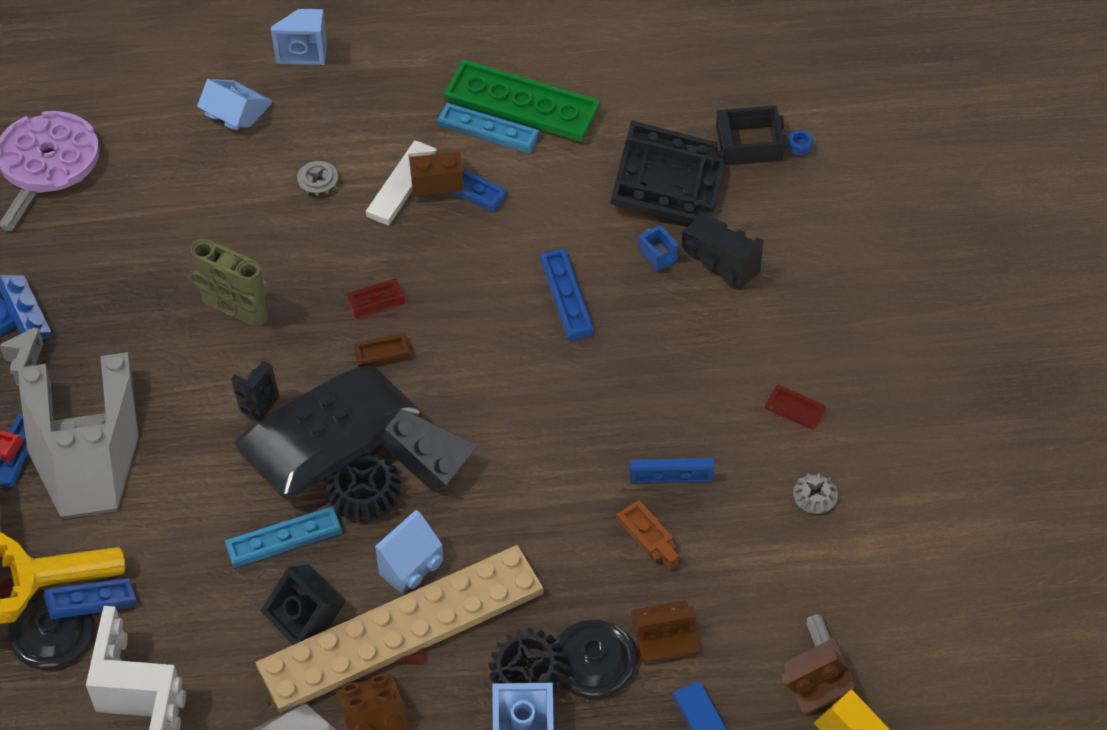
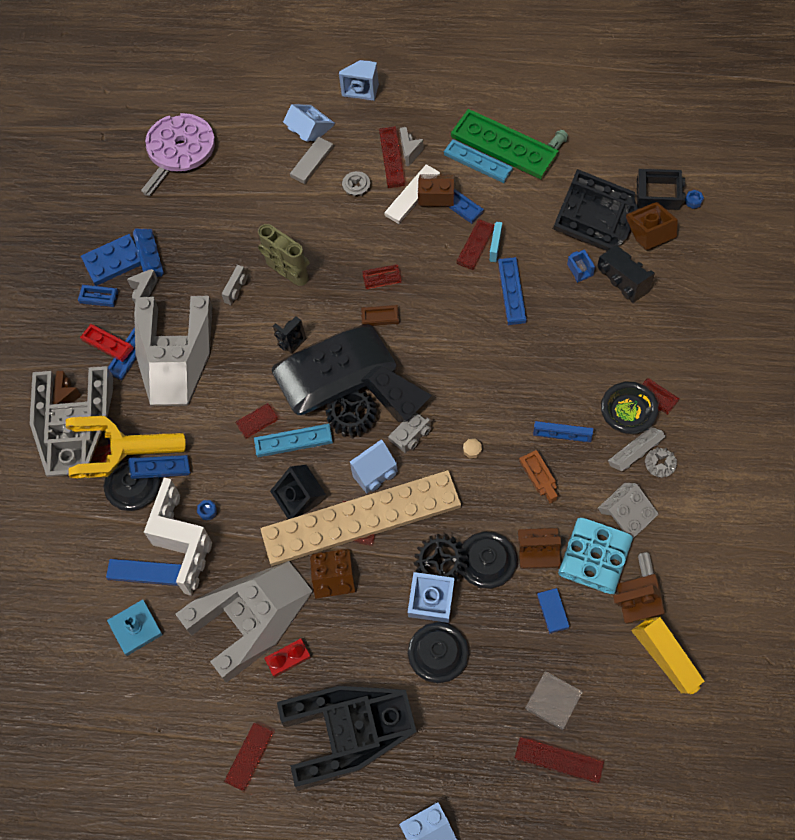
camera: 15 degrees right, 10 degrees up
(158, 343) = (234, 284): none -> light grey plate
(170, 649) = (206, 510): none -> blue tile
(224, 517) = (256, 420): none -> clear red tile
(246, 154) = (311, 160): none -> light grey tile
(363, 137) = (391, 157): none -> clear red tile
(388, 121) = (410, 147): none -> light grey slope
(453, 501) = (409, 432): none -> light grey bracket
(503, 239) = (475, 244): none -> clear red tile
(532, 231) = (495, 242): none -> medium azure tile
(546, 511) = (472, 448): none -> tan tile
(599, 83) = (561, 136): none -> sand green pin
(749, 182) = (652, 225): none -> reddish brown slope
(759, 425) = (629, 407): none -> black piece
(764, 651) = (576, 563): none -> medium azure connector
(779, 479) = (636, 449): none -> light grey plate
(783, 560) = (629, 508): none -> light grey bracket

